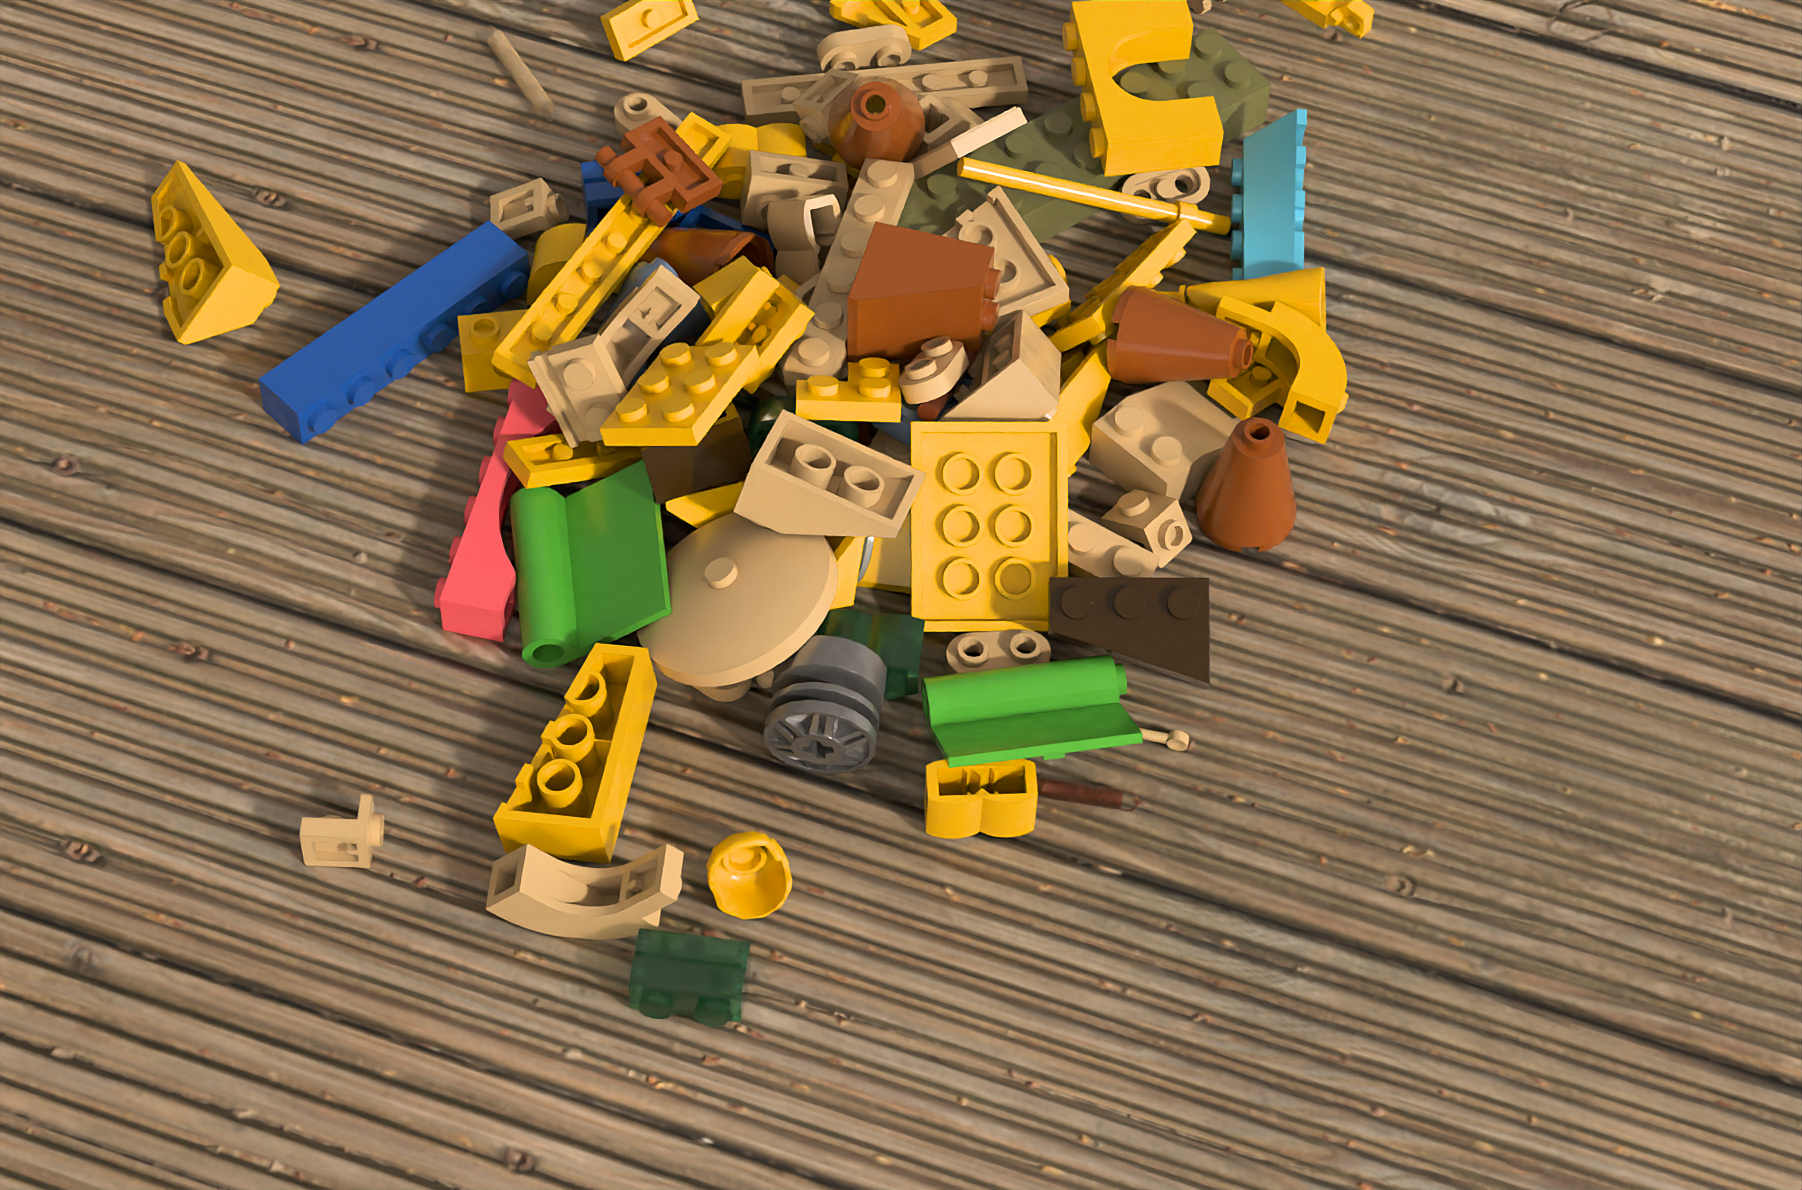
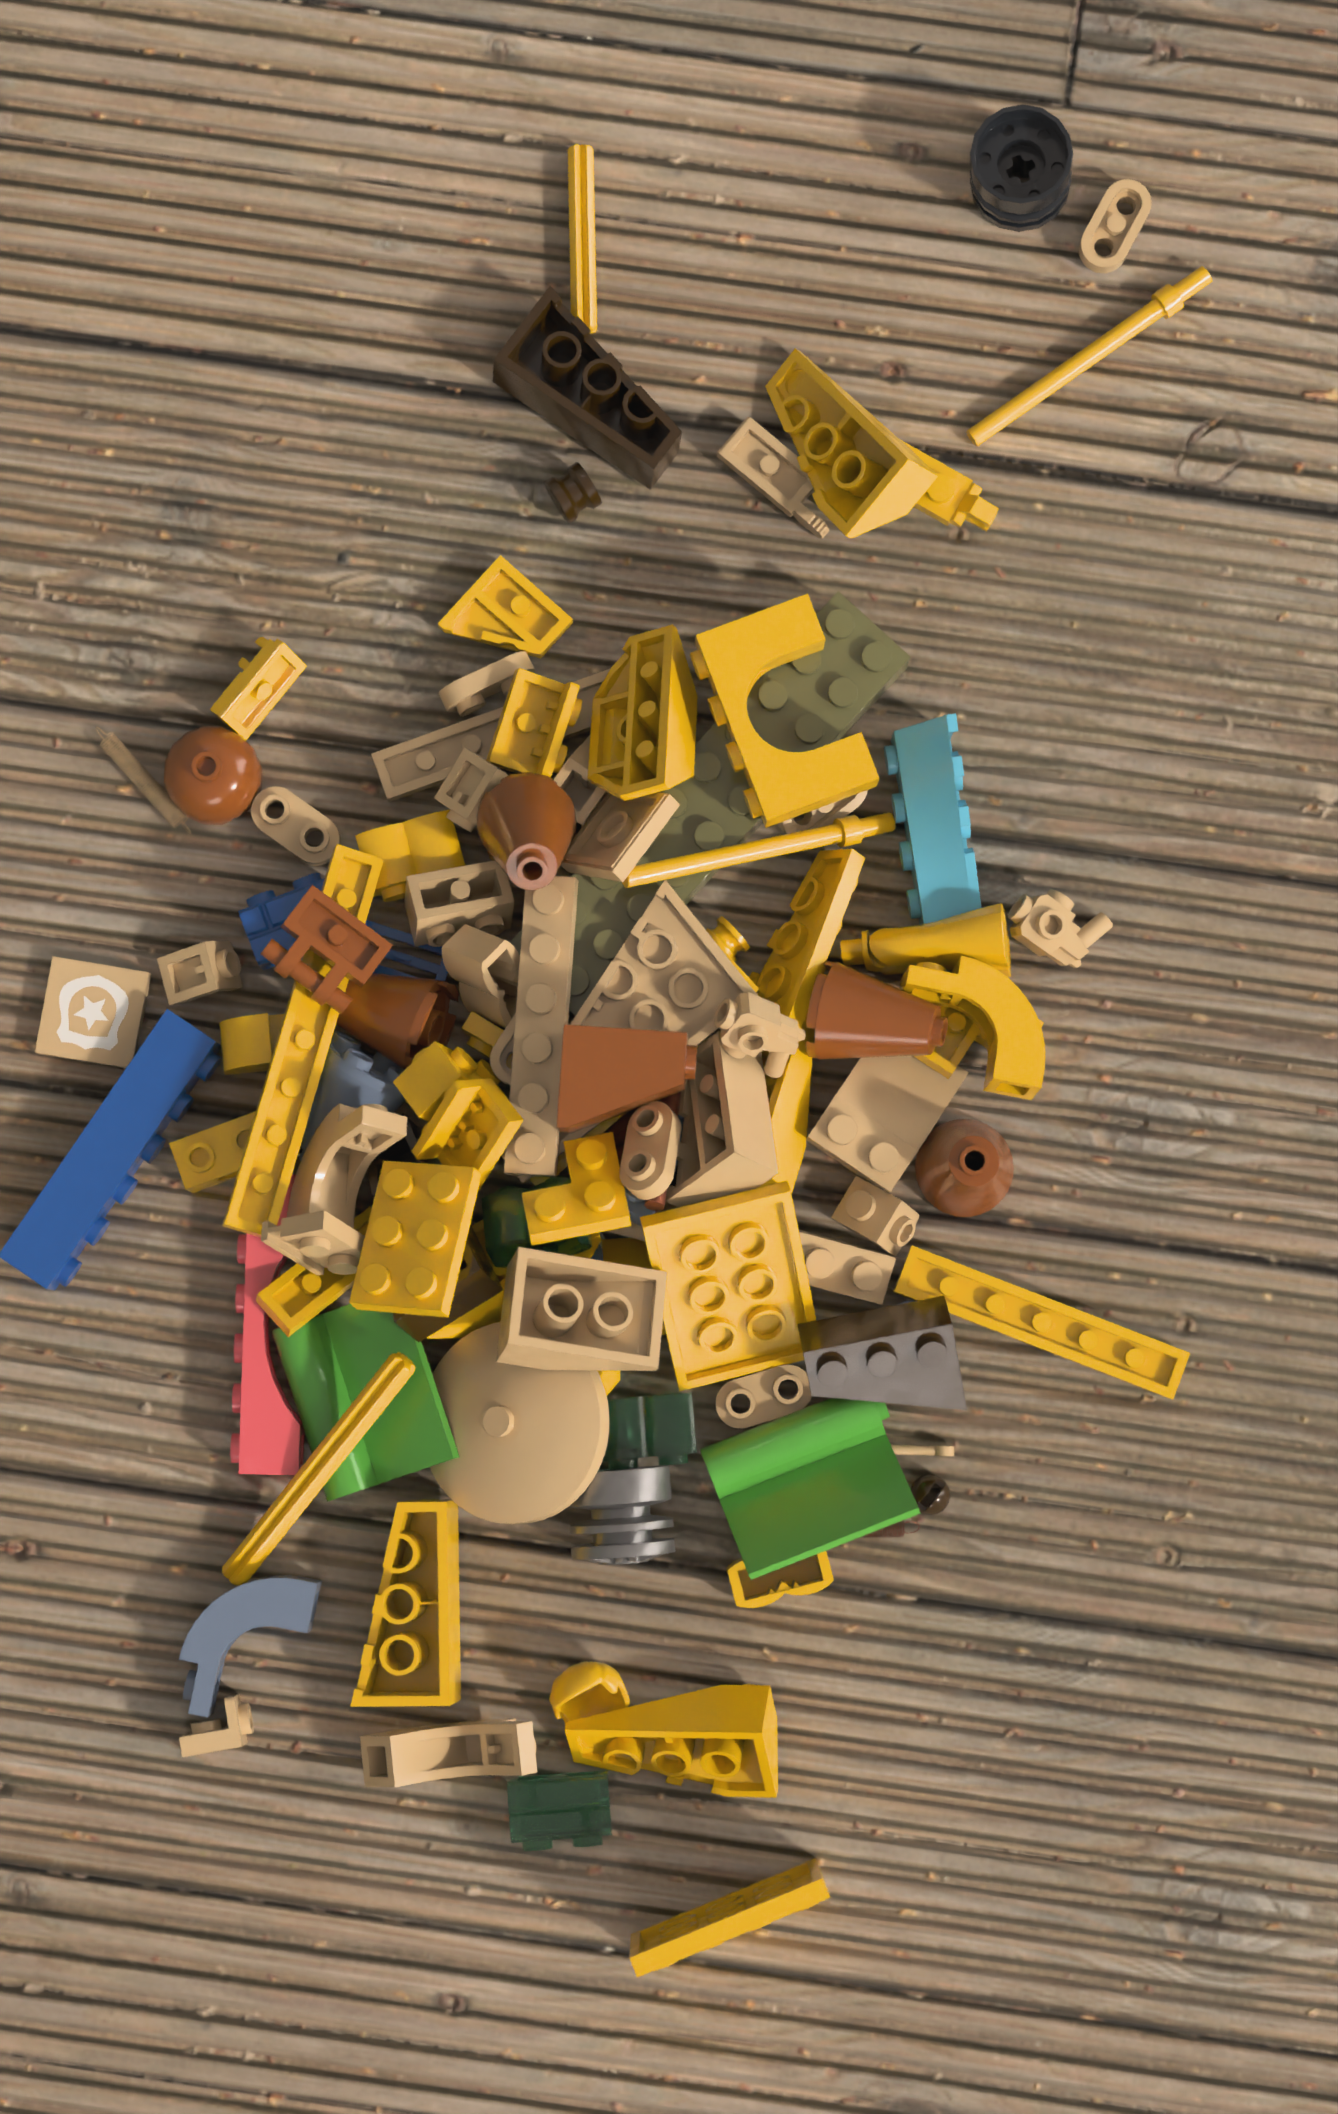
camera: 10 degrees left, 30 degrees up
(402, 733) = (262, 1602): none -> sand blue arch
(411, 227) = (92, 1012): none -> tan tile
(521, 607) = (318, 1468): none -> yellow axle
(585, 74) = (212, 775): none -> dark orange cylinder
(851, 1081) = (727, 1917): none -> yellow plate
(856, 943) = (704, 1736): none -> yellow wedge
(910, 60) = (534, 724): none -> yellow bracket
(1010, 74) = (644, 718): none -> yellow wedge
(1063, 300) = (757, 1025): none -> tan piece
(1161, 782) = (921, 1488): none -> dark brown hinge
(1317, 649) = (1043, 1322): none -> yellow plate
(1364, 324) = (1047, 928): none -> tan piece

